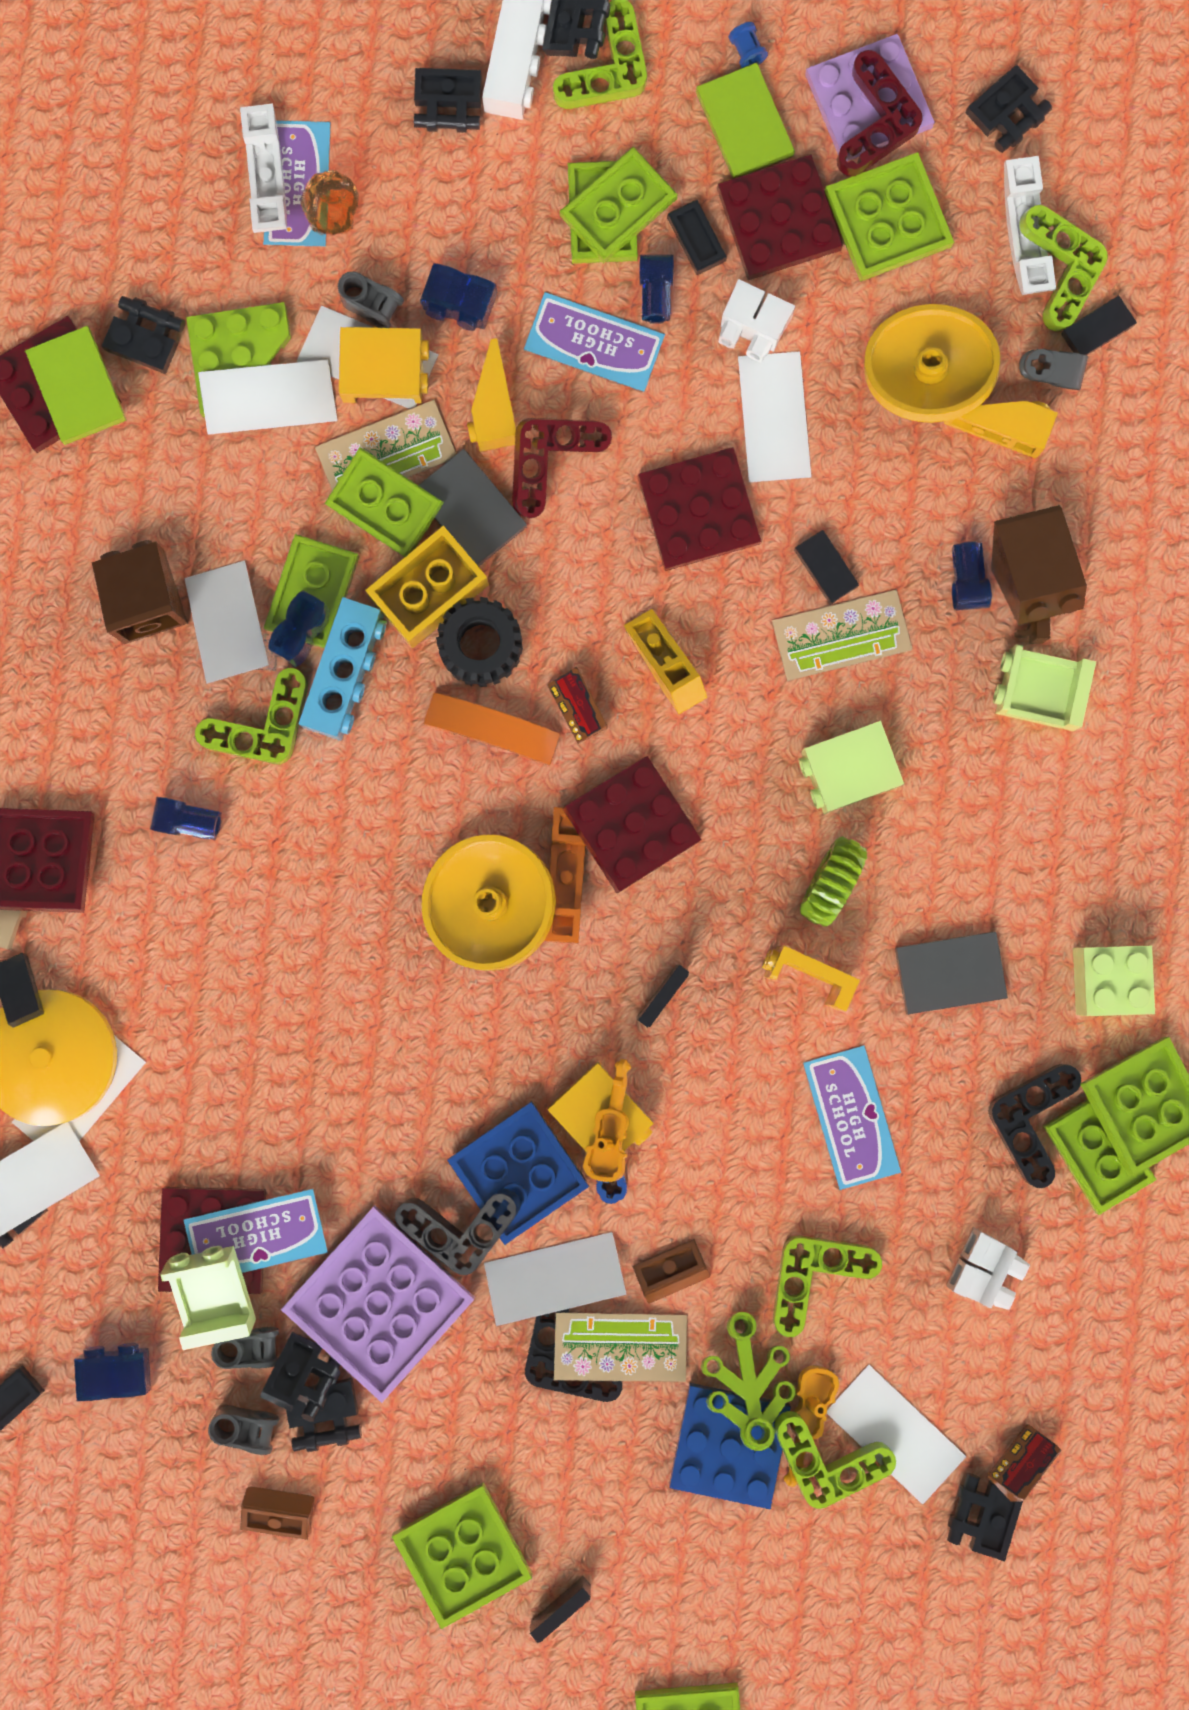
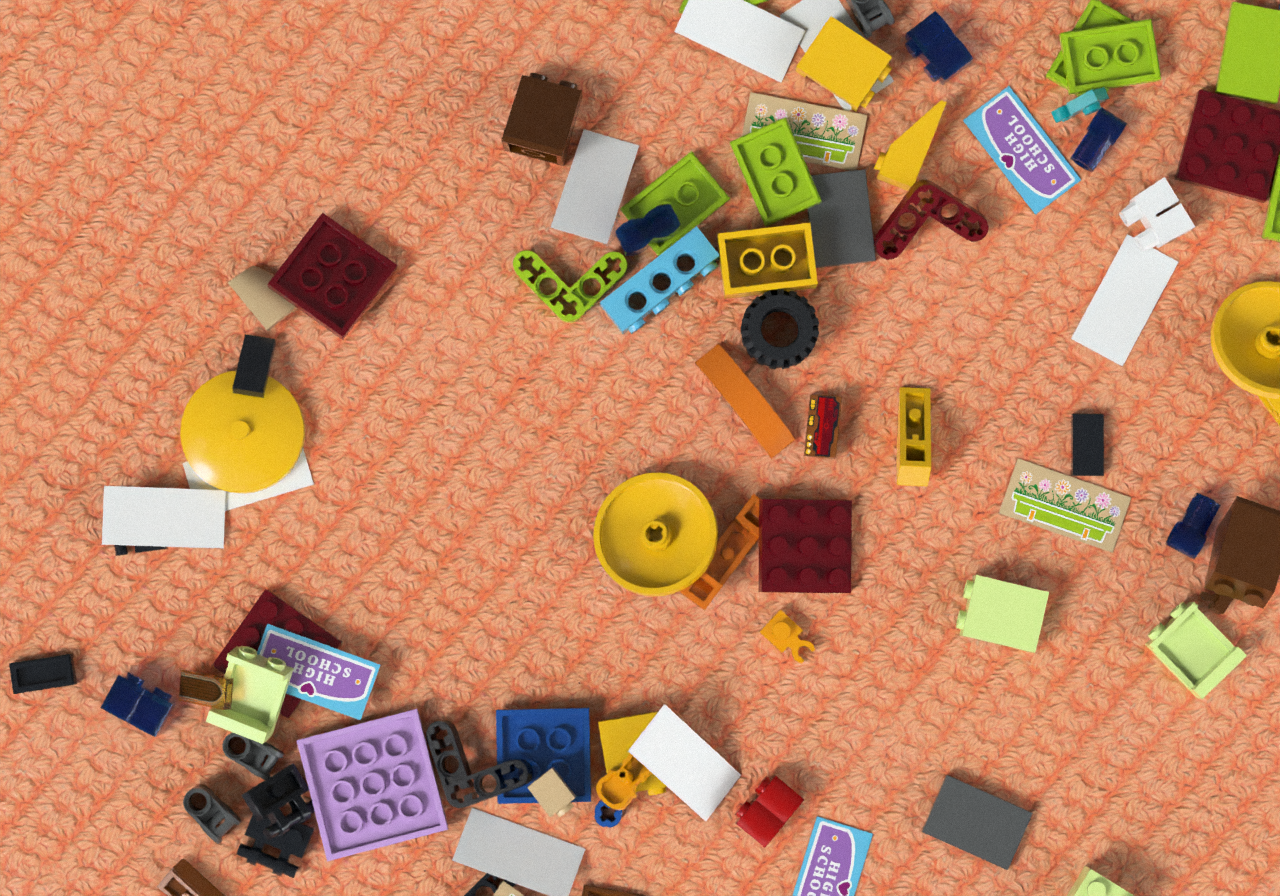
camera: 40 degrees right, 0 degrees up
(165, 1318) = (206, 689): none -> tile
(176, 817) = (460, 314): clear blue piece -> none
(548, 1203) = (552, 793): none -> tan brick
(623, 259) = (1086, 103): none -> teal plate
(650, 1094) = (684, 762): none -> white sticker
(663, 995) = (742, 693): black tile -> none
(664, 916) = (784, 633): none -> light orange plate
(696, 237) = (1156, 120): black tile -> none
(699, 509) = (1017, 334): dark red plate -> none
(756, 1087) = (769, 810): none -> red brick
(833, 881) = (931, 691): lime gear -> none
(843, 984) = (886, 773): yellow panel -> none

